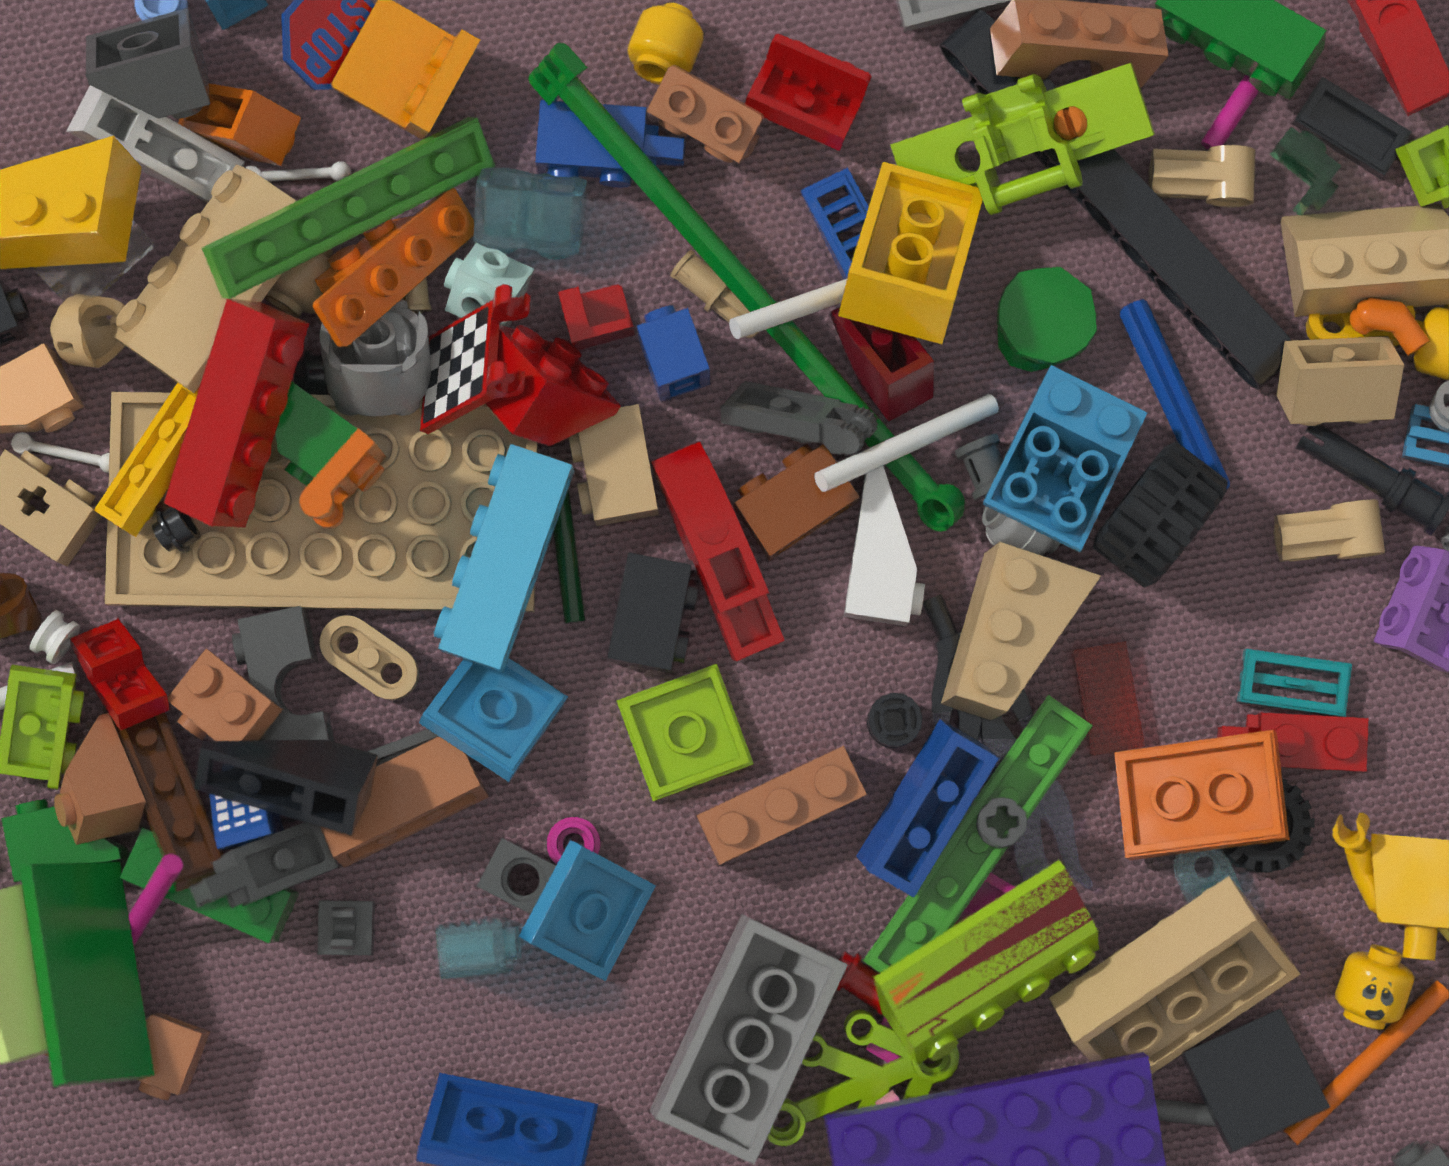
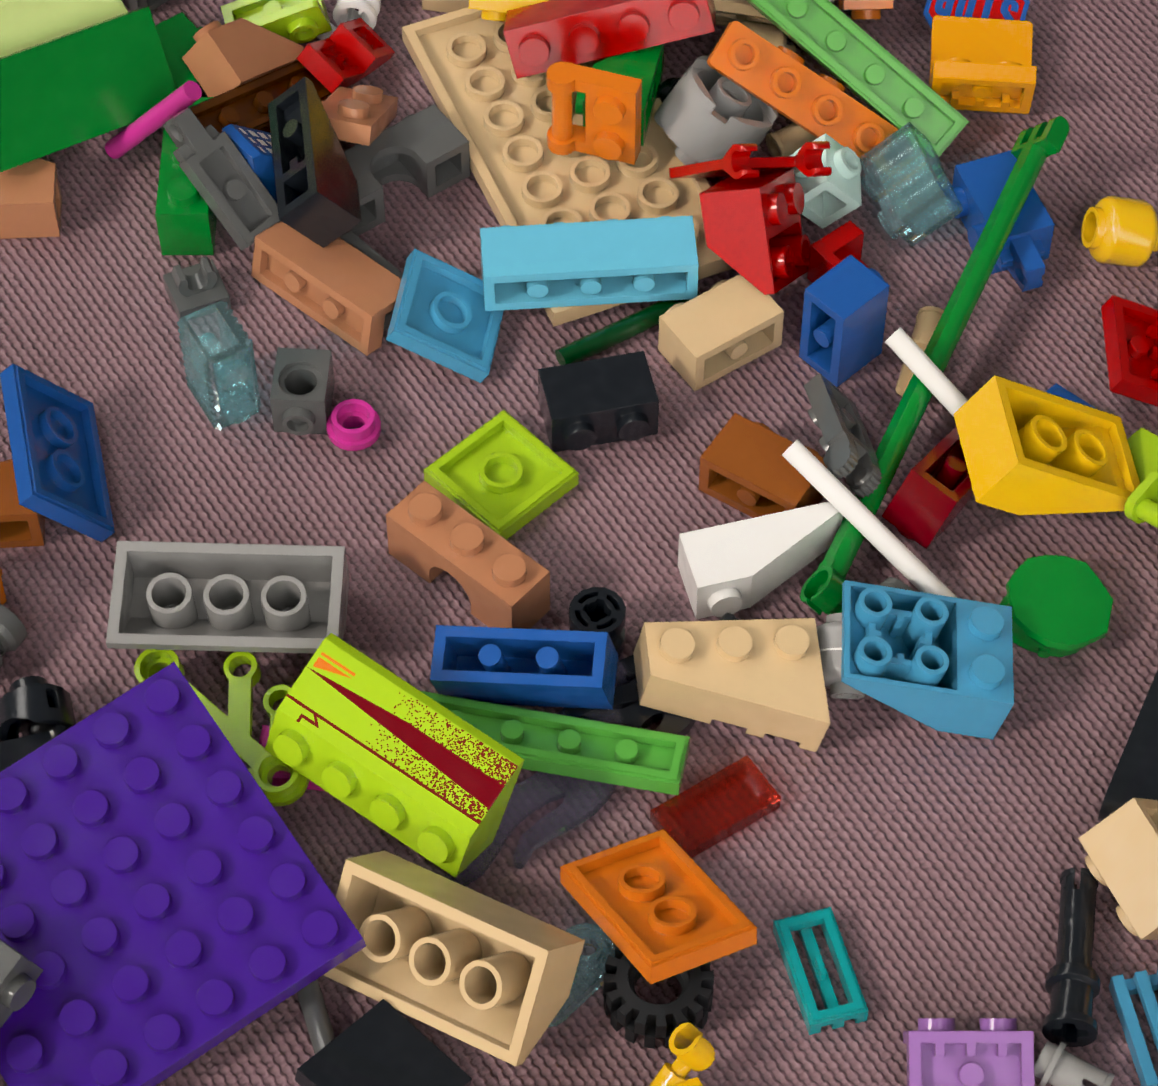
camera: 65 degrees right, 30 degrees down
(175, 529) = (488, 40): black plate -> none
(370, 657) = (443, 228): tan plate -> none
(587, 910) = (294, 442): dark azure plate -> none
(707, 114) = (1074, 273): nougat bracket -> none
(718, 550) = (679, 427): red slope -> none
(1013, 811) = (547, 718): dark grey bush -> none
(1160, 514) = (919, 749): black tyre -> none
(1169, 384) = (1044, 754): blue axle -> none
(1312, 740) = (766, 1007): red hinge -> none
(1343, 531) = (998, 947): tan piece -> none

